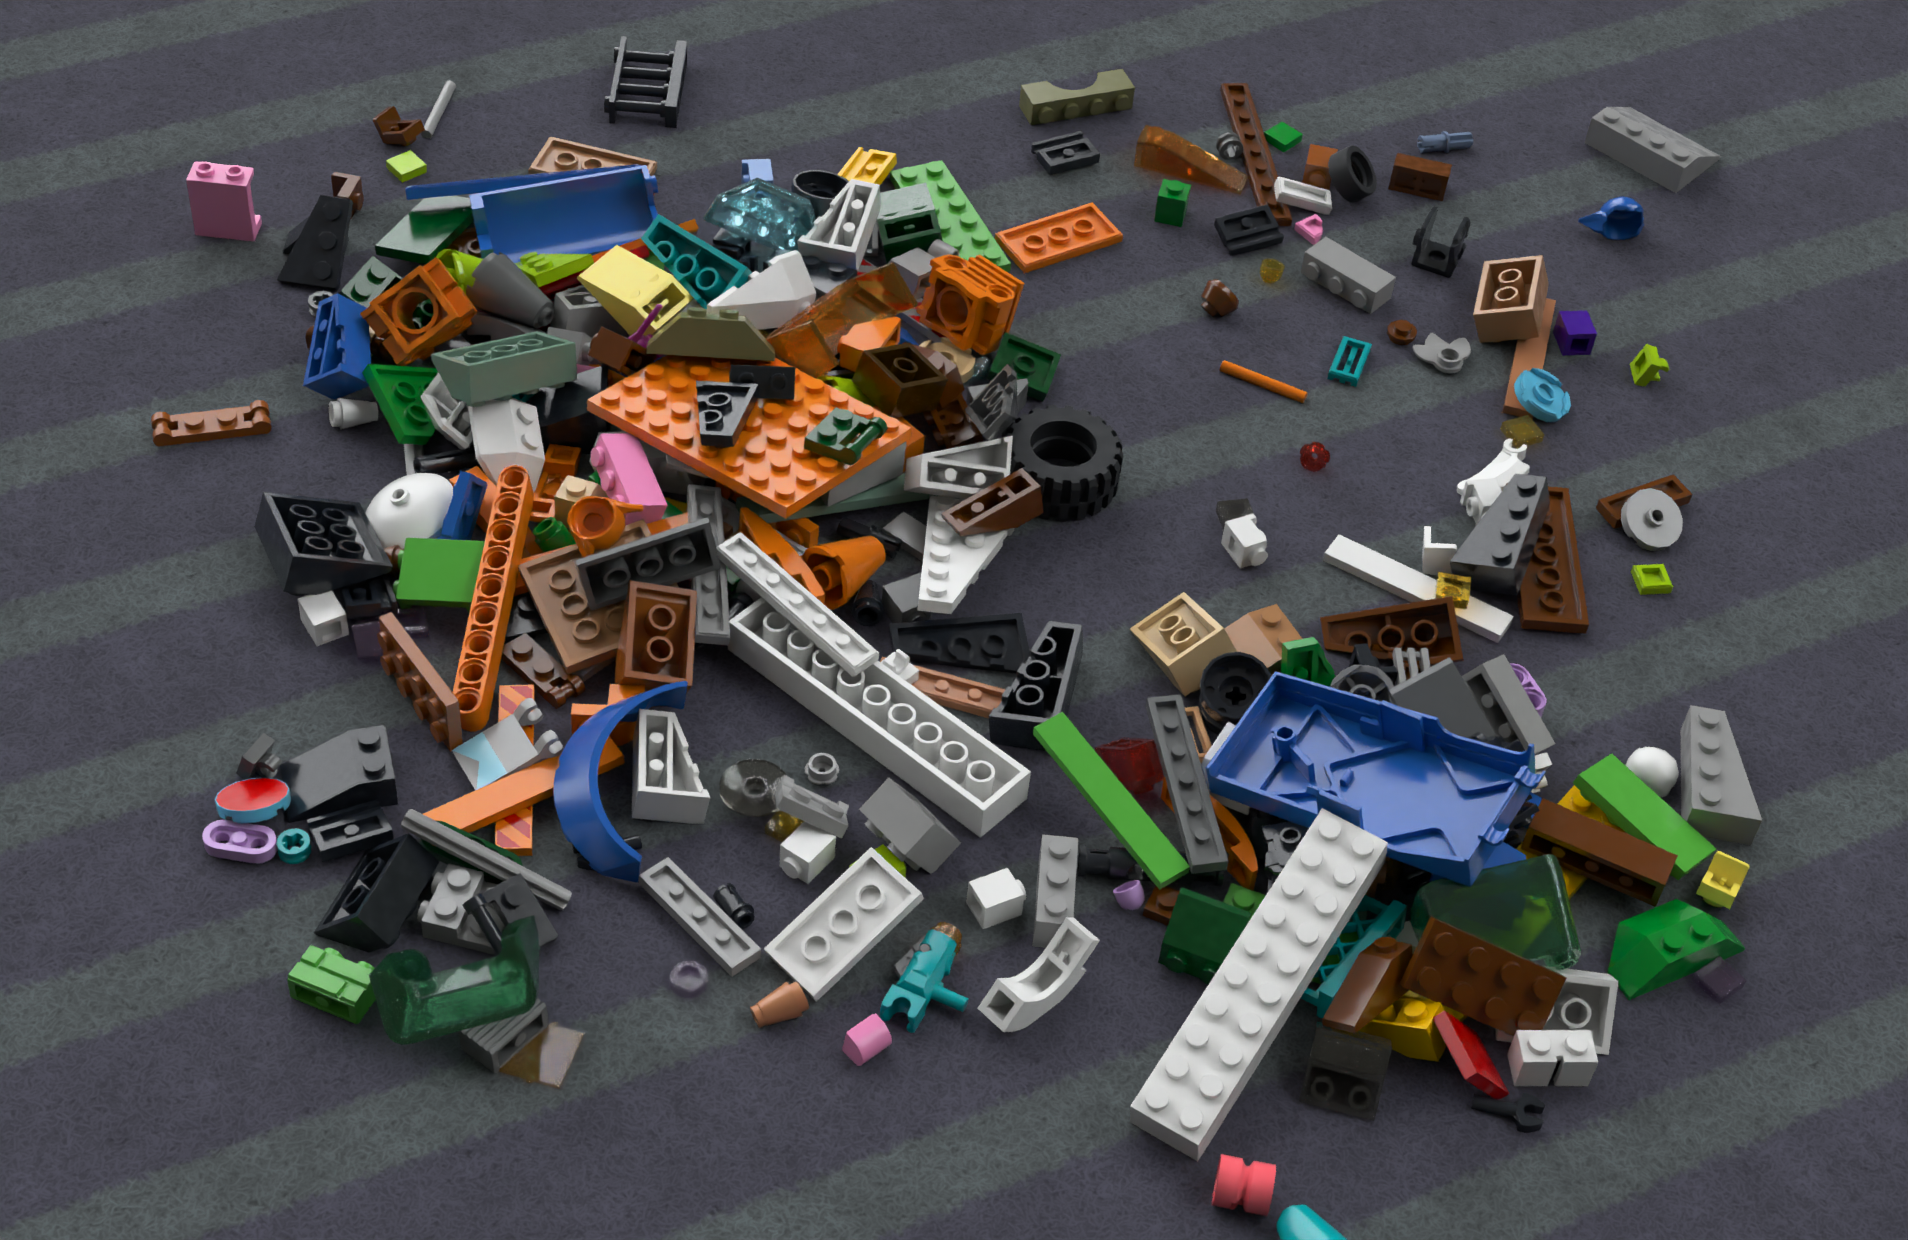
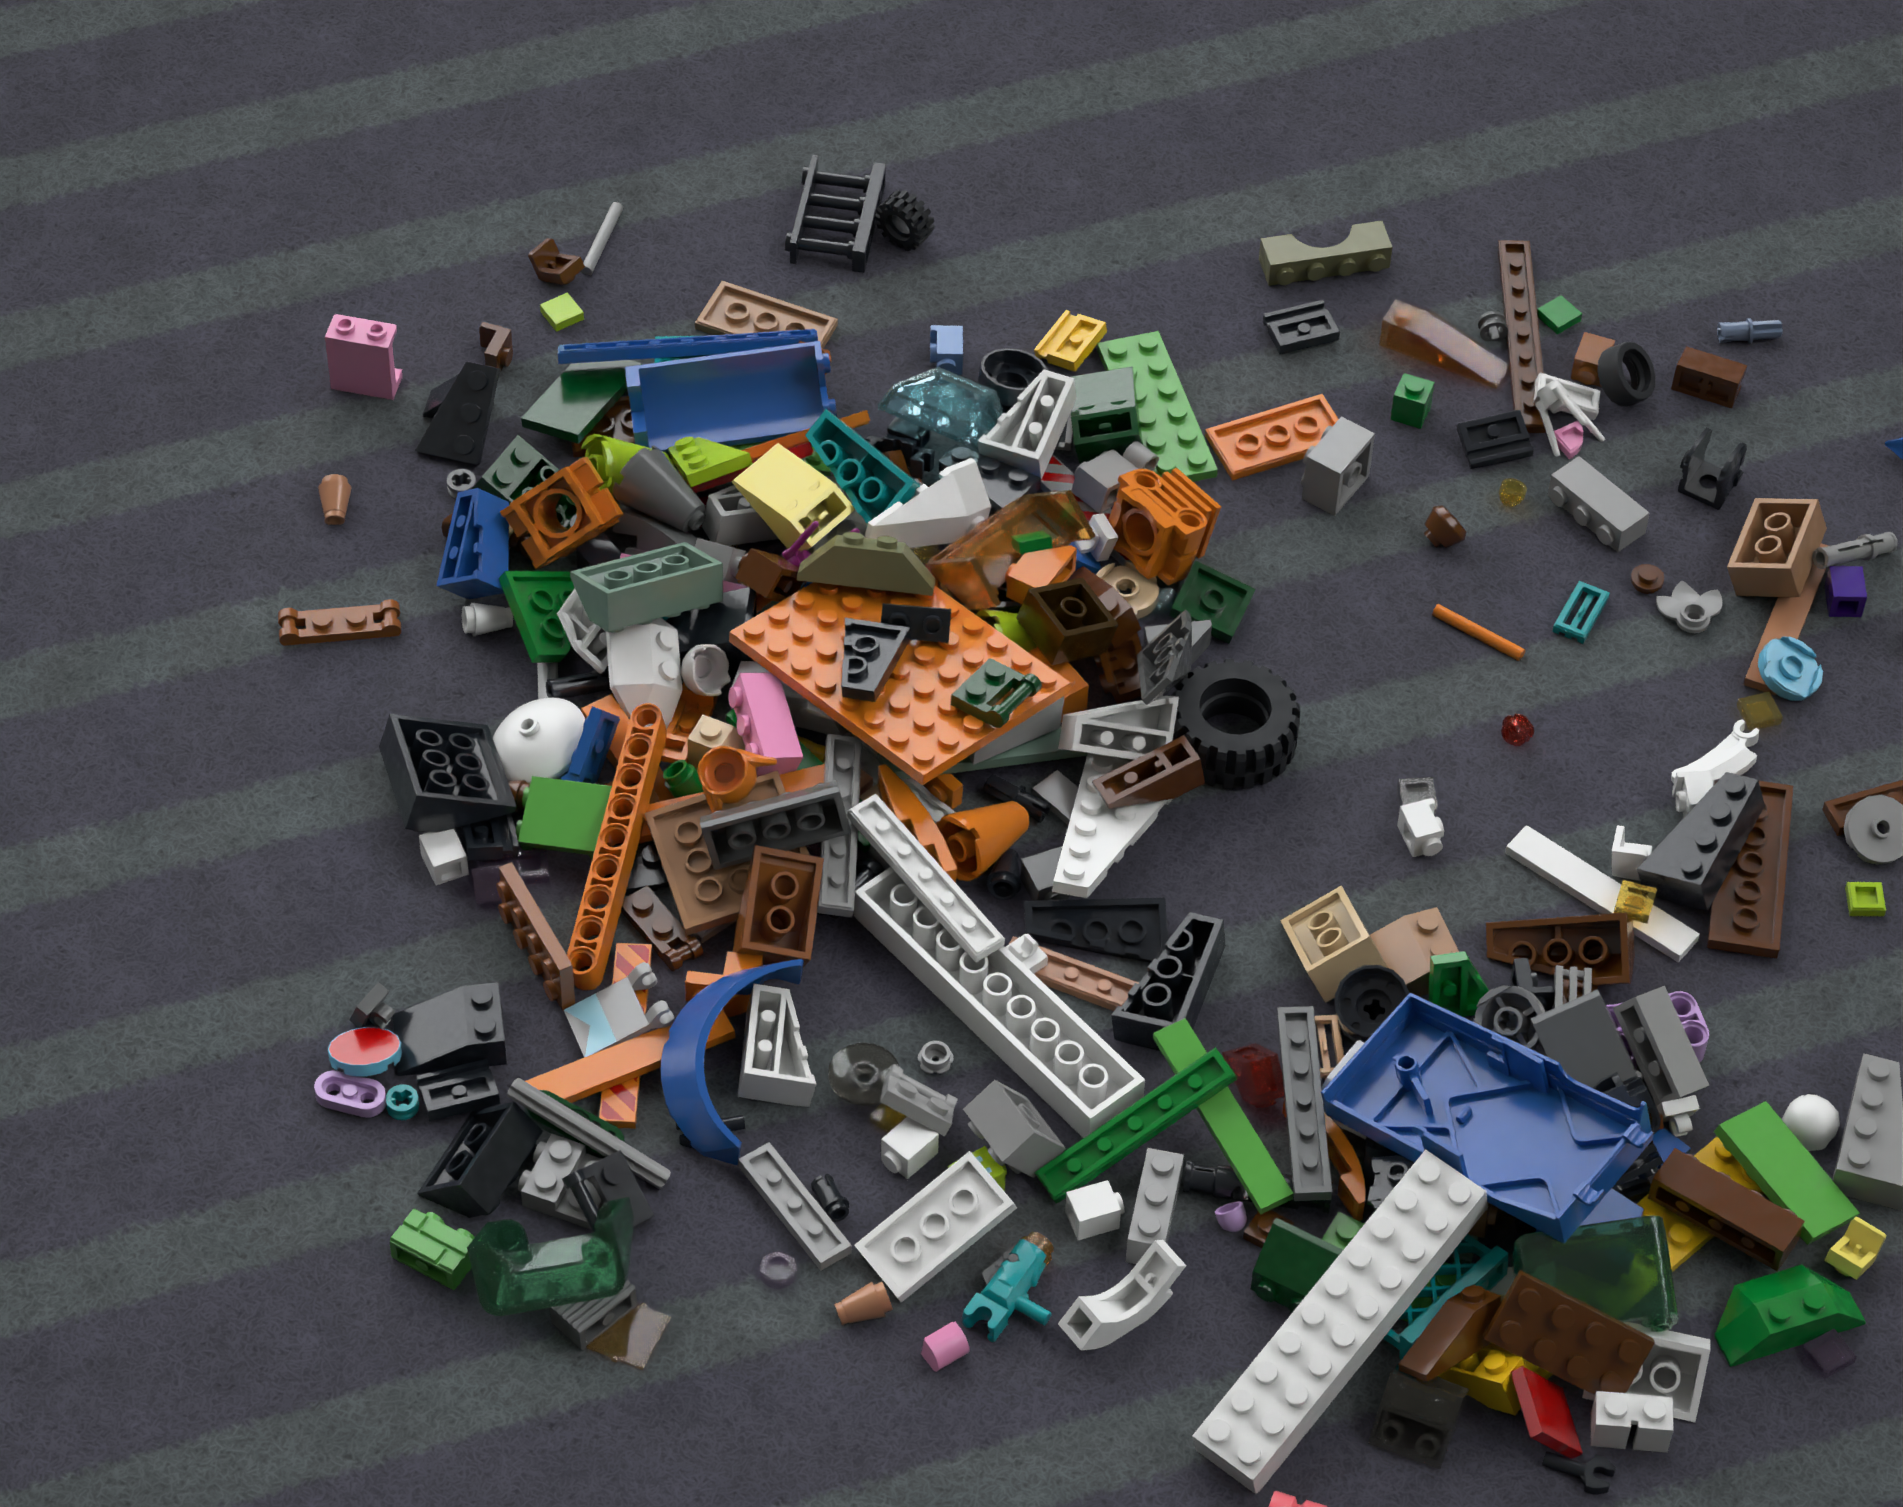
camera: 10 degrees right, 5 degrees up
(202, 320) = (334, 497): none -> nougat cone
(565, 440) = (705, 670): none -> white hair
(718, 77) = (904, 220): none -> black tyre
(858, 316) = (1031, 542): none -> green tile
(916, 320) = (1103, 542): none -> white tile
(1027, 815) = (1136, 1125): none -> green tile
(1118, 252) = (1337, 465): none -> light grey brick
(1297, 193) = (1555, 398): none -> white plant
(1582, 298) = (1864, 547): none -> light grey pin

